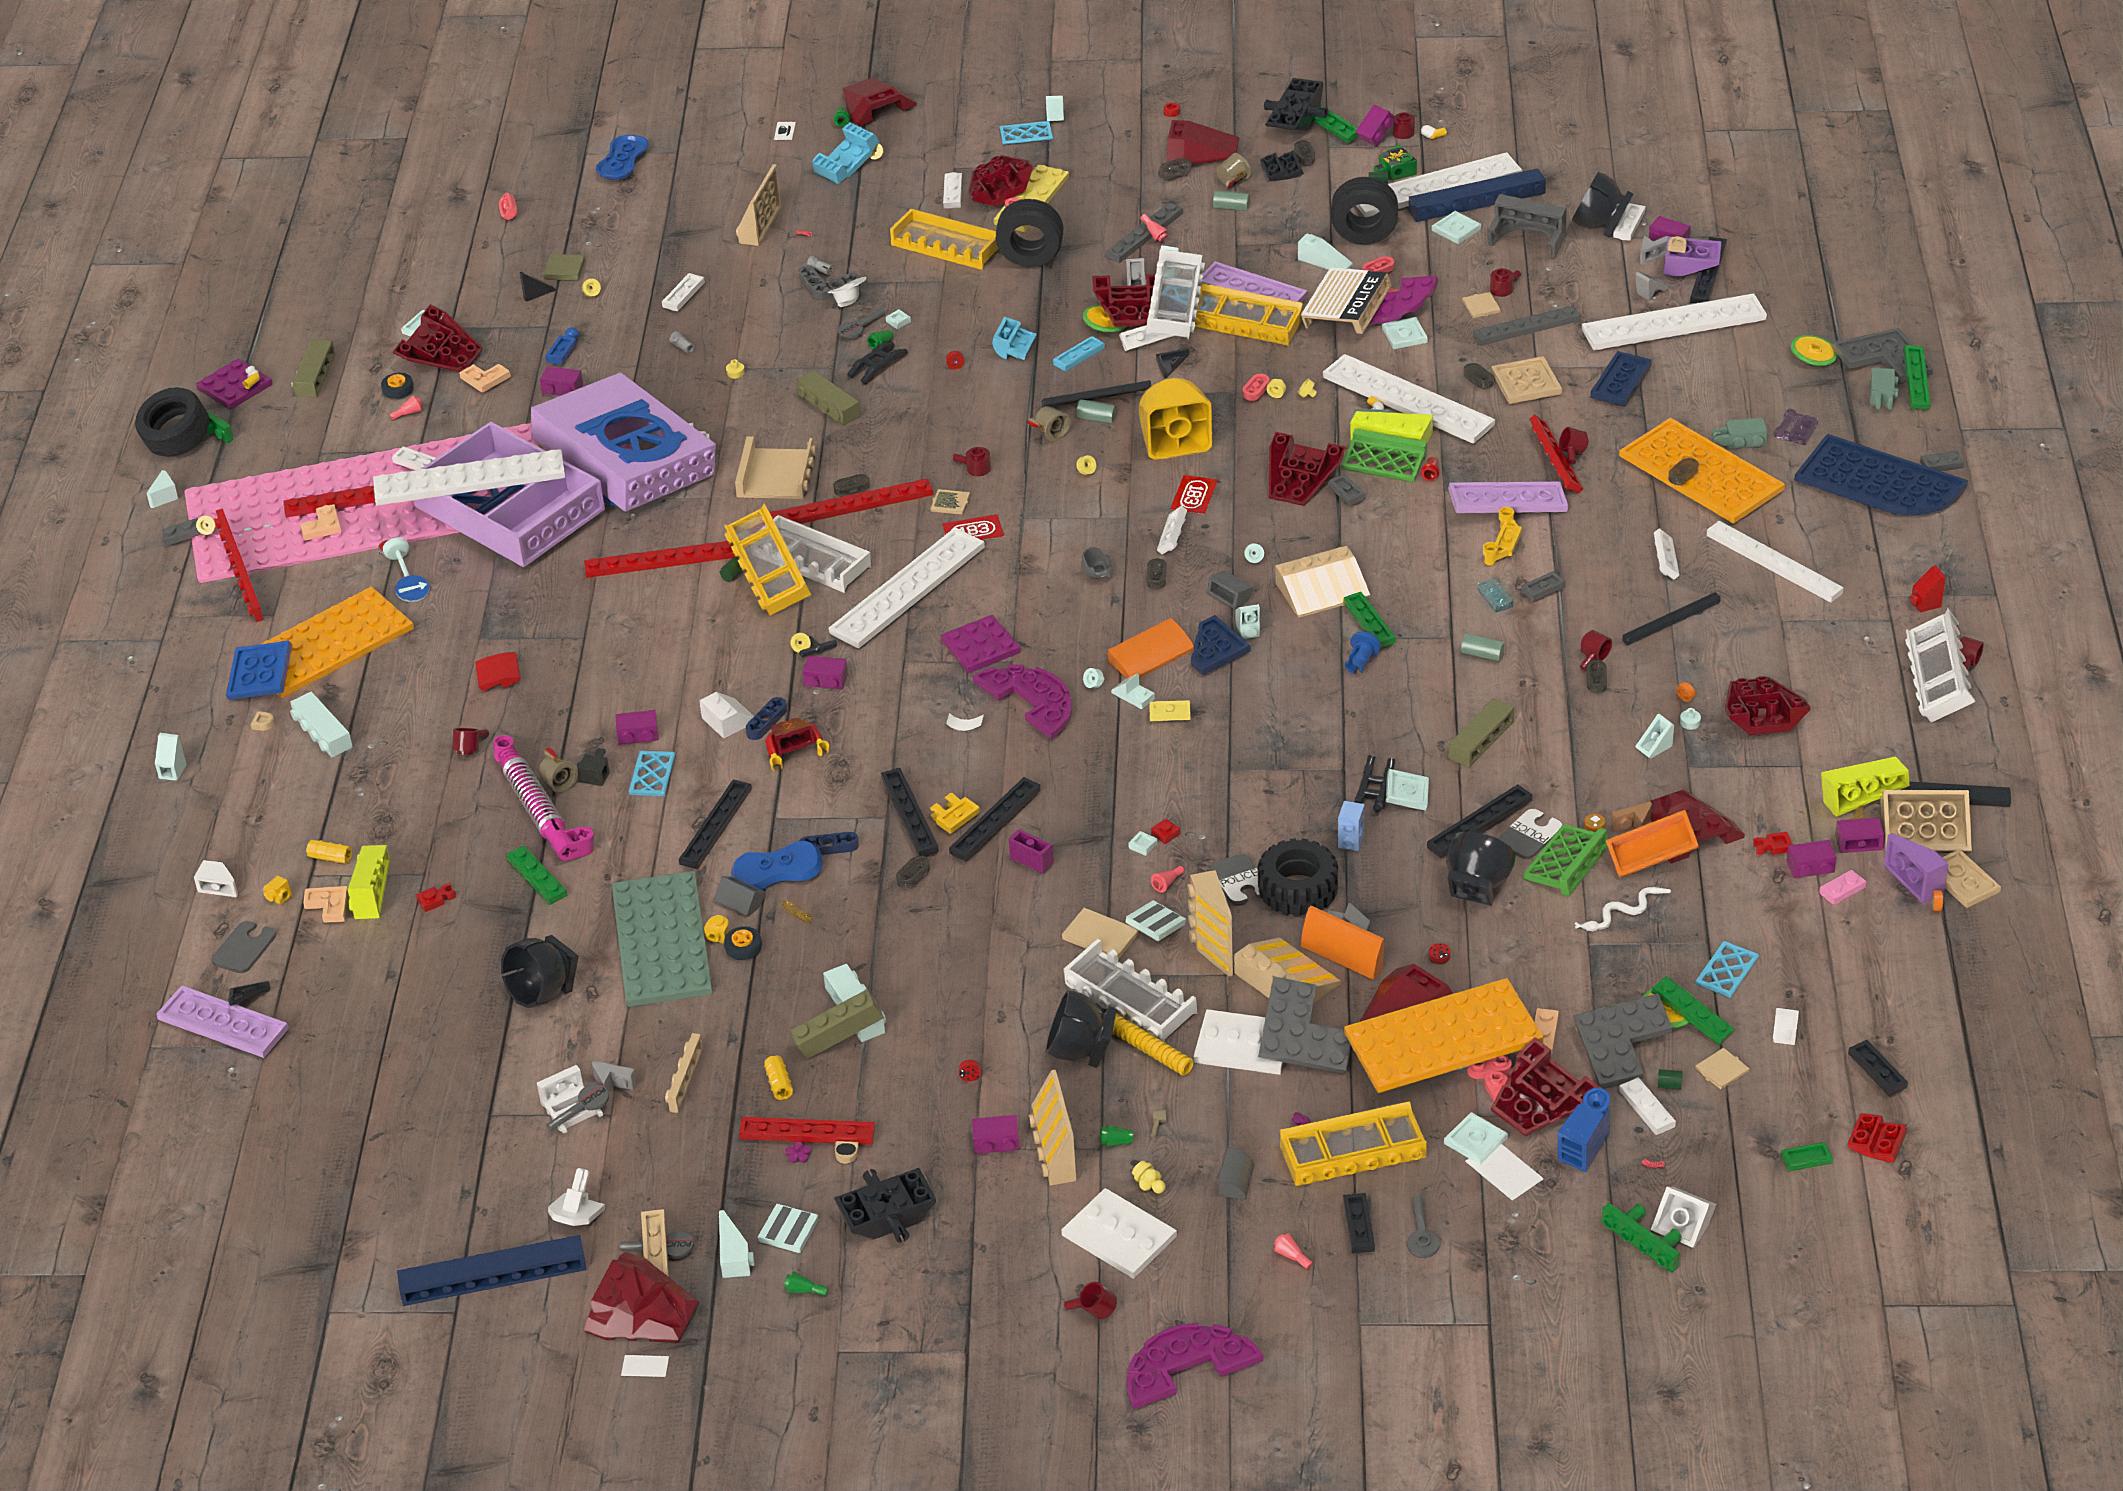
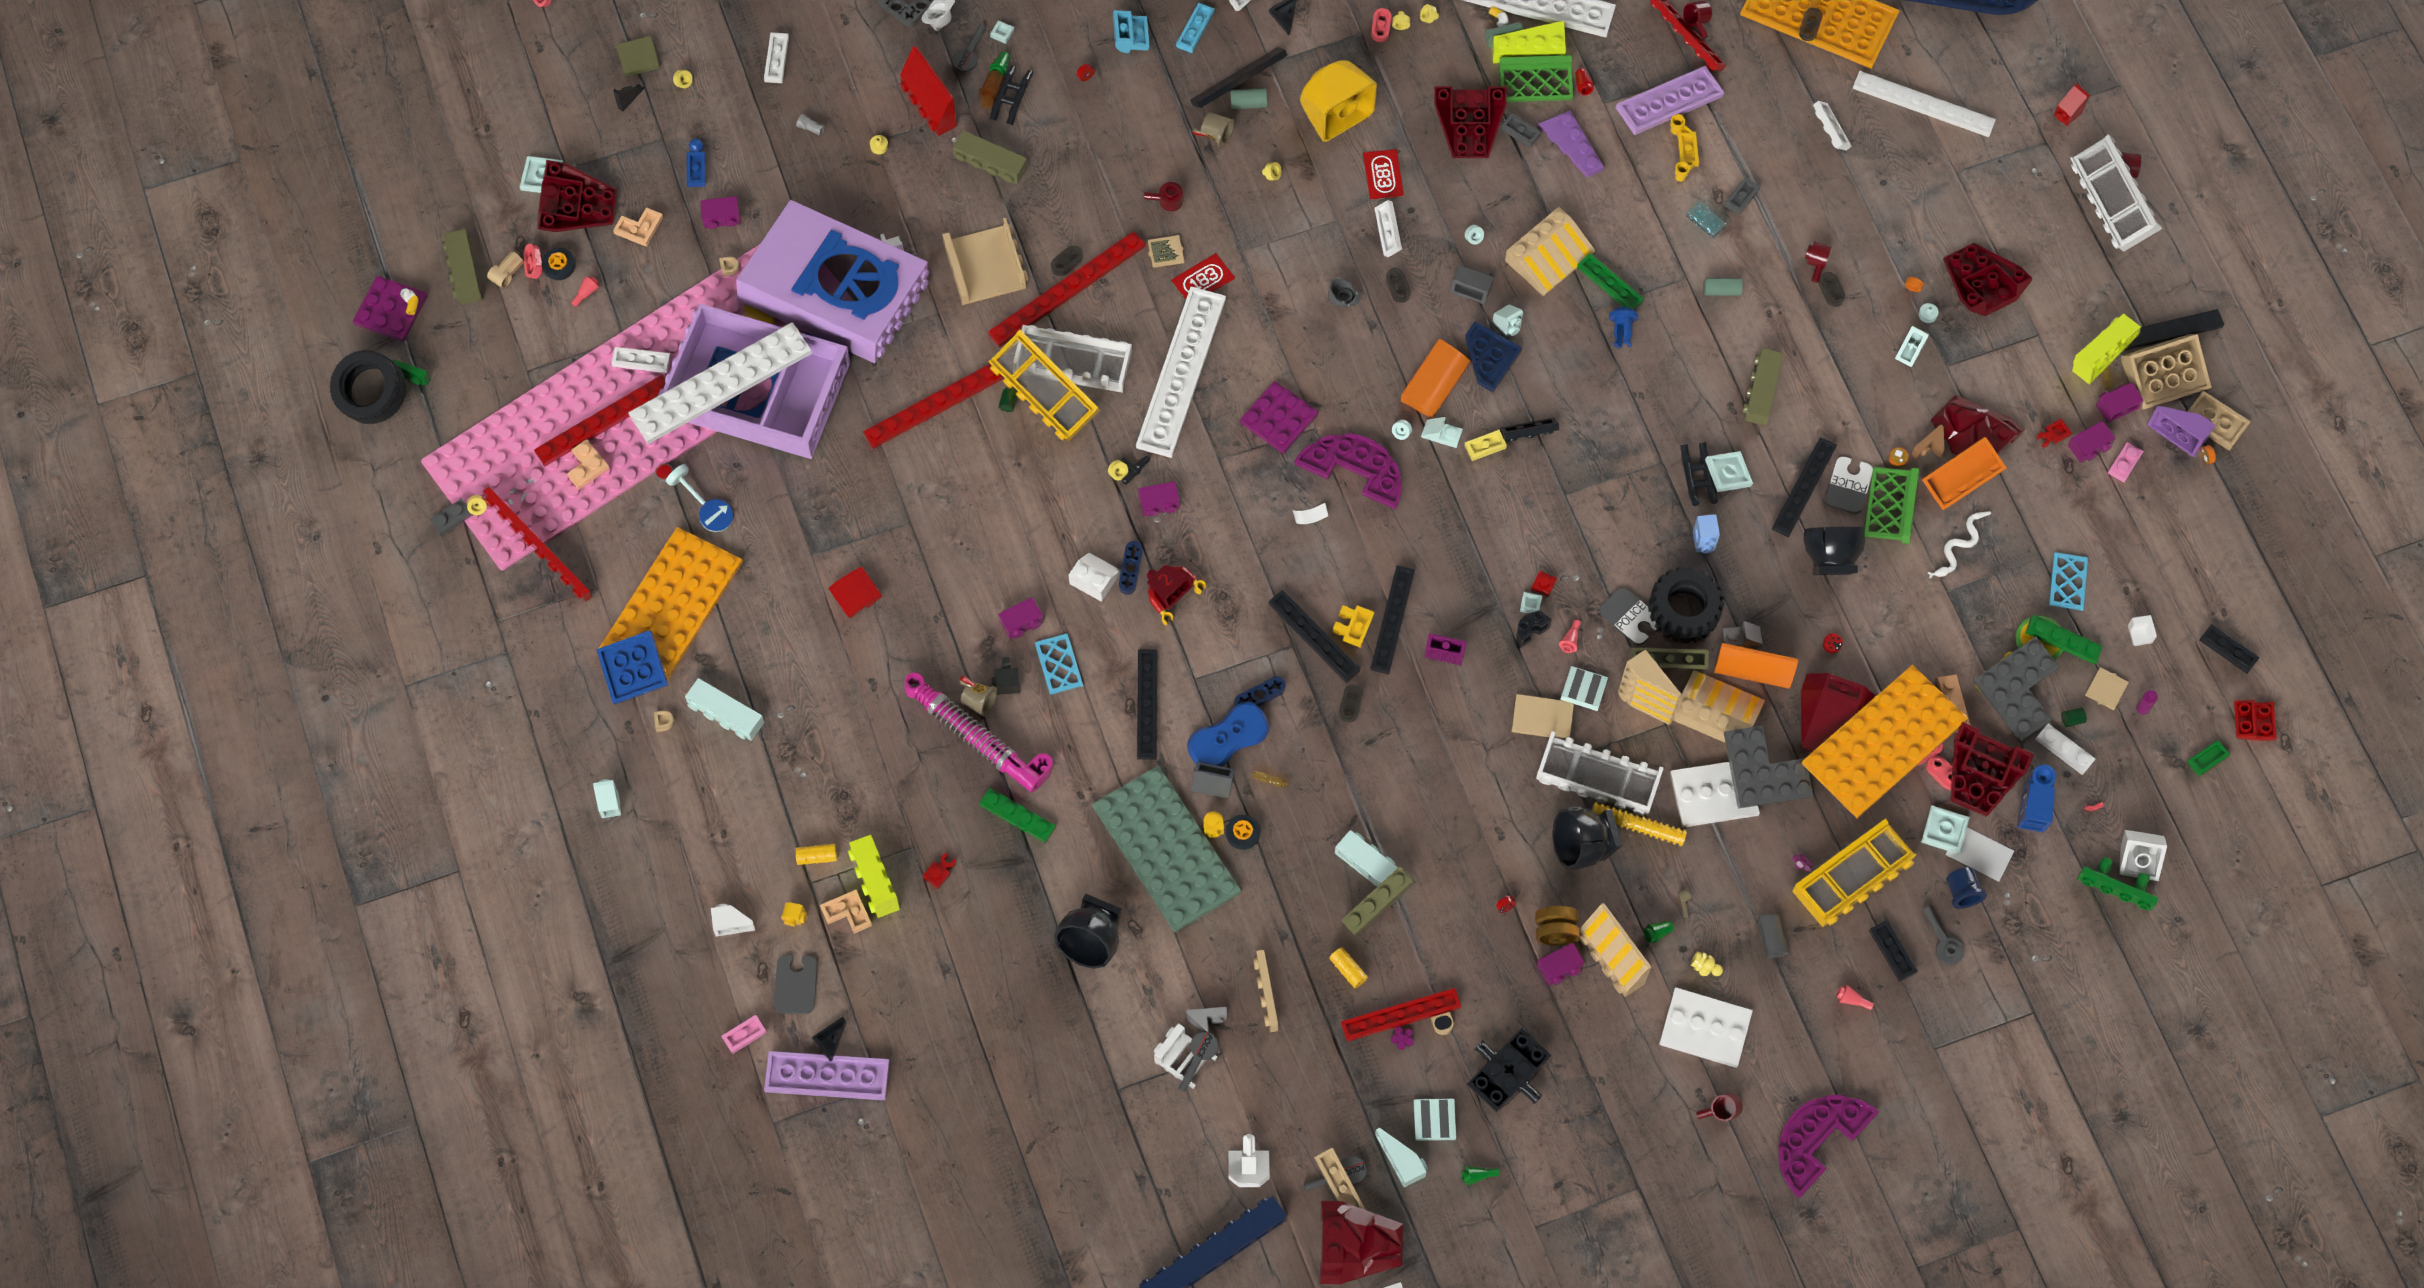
camera: 25 degrees left, 25 degrees up
(162, 490) = (402, 470): light aqua slope -> none
(169, 968) = (744, 1034): none -> bright pink plate
(345, 380) = (502, 273): none -> tan piece
(378, 374) = (532, 261): none -> coral plate
(467, 740) = (874, 685): dark red piece -> none
(797, 338) = (928, 93): none -> red slope
(856, 352) = (990, 89): none -> clear orange piece
(1008, 1093) = (1557, 925): none -> pearl gold wheel
(1129, 856) = (1534, 622): none -> black cylinder
(1220, 709) = (1529, 429): none -> black plate
(1262, 917) = (1675, 657): none -> olive brick
(1394, 510) = (1573, 142): none -> medium lavender wing
(1465, 1188) = (1965, 888): none -> dark blue piece
(1671, 618) = (1864, 201): black axle -> none
(1757, 1083) = (2147, 702): none -> magenta cylinder

